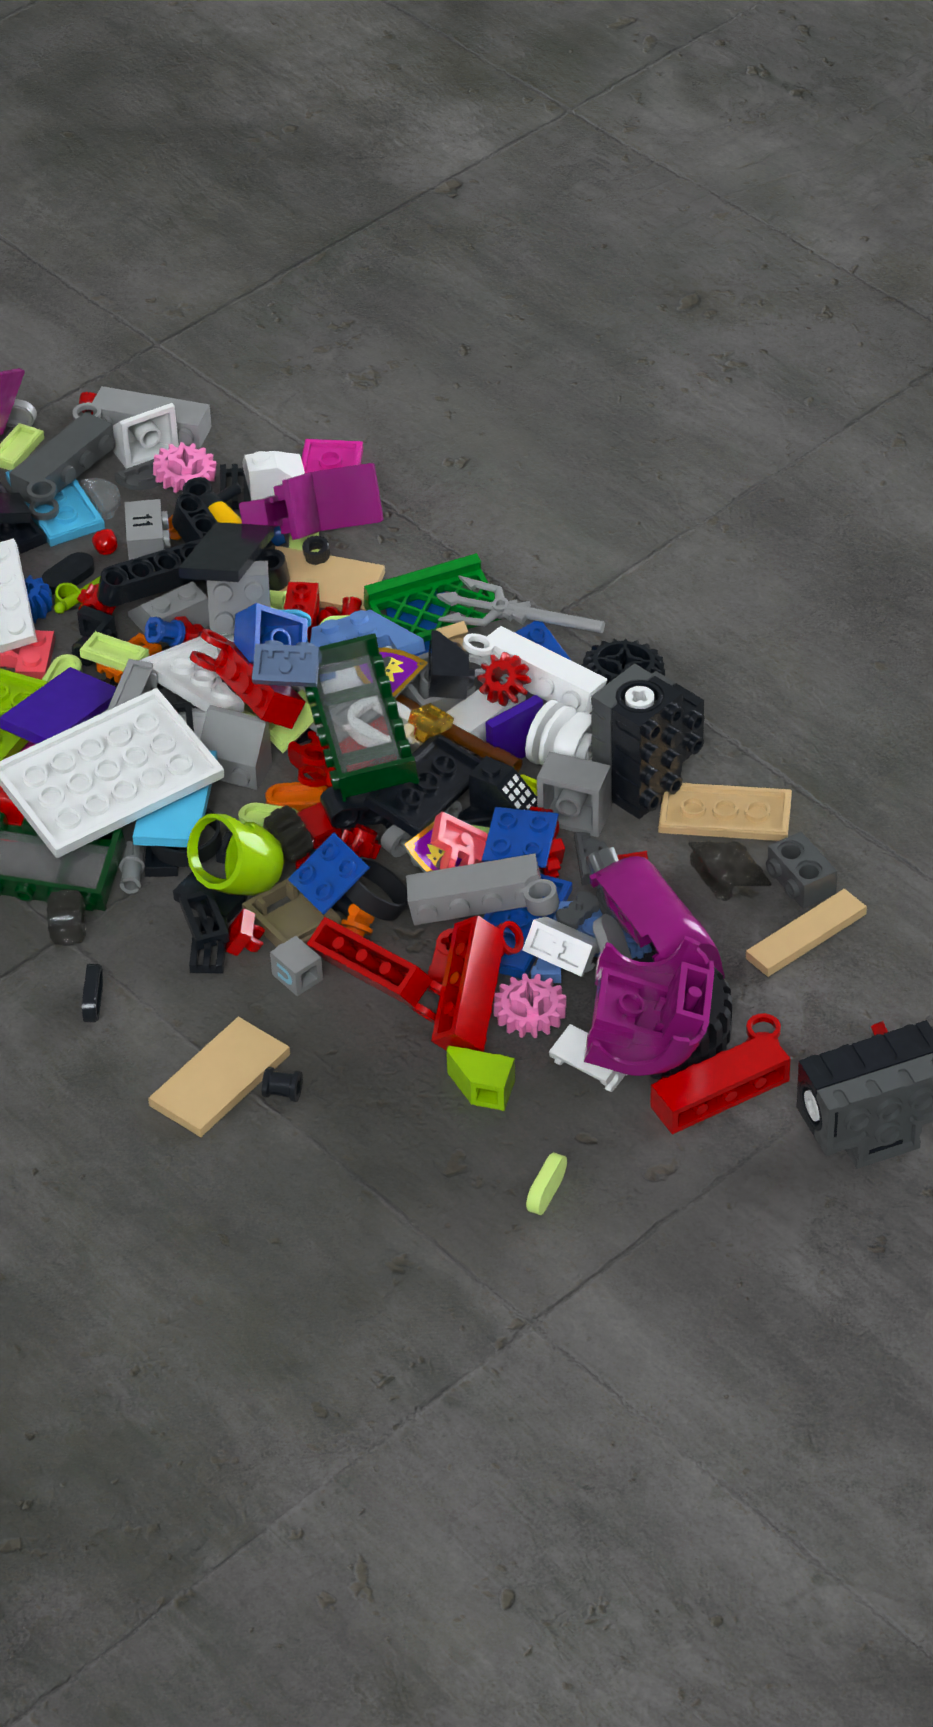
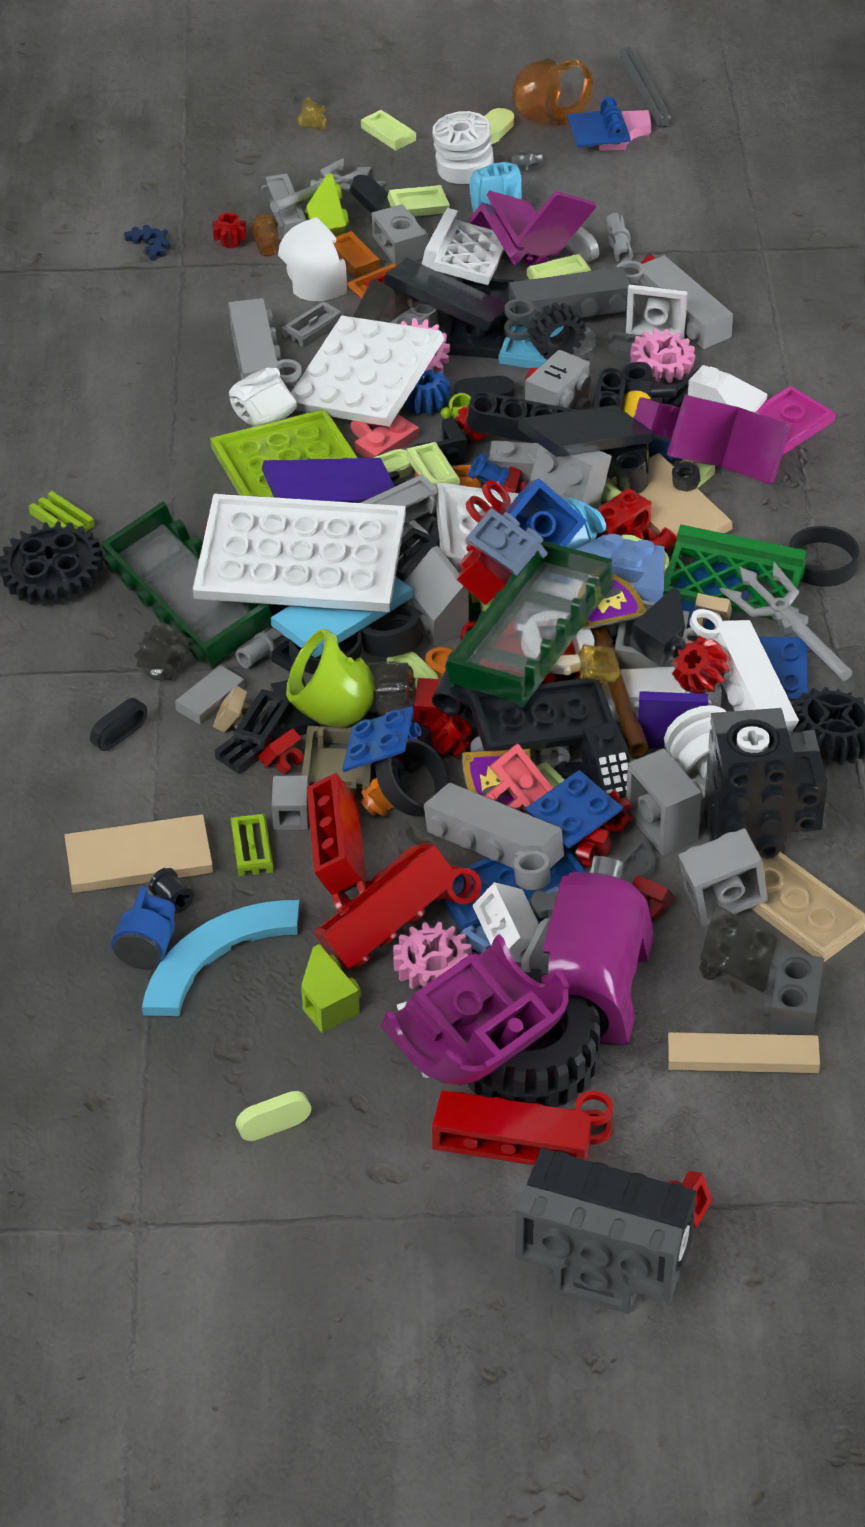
camera: 40 degrees right, 0 degrees up
(38, 394) = (619, 237): none -> light grey pin
(92, 491) = (549, 322): none -> black tyre
(131, 929) = (207, 695): none -> light grey tile
(168, 928) = (231, 710): none -> tan tile
(240, 801) = (393, 633): none -> black tyre
(293, 1018) = (253, 864): none -> lime tile
(302, 1122) = (144, 931): none -> blue piece
(352, 1102) = (210, 941): none -> medium azure tile
(479, 535) = (834, 536): none -> black tyre
(677, 818) = (723, 874): none -> light grey brick

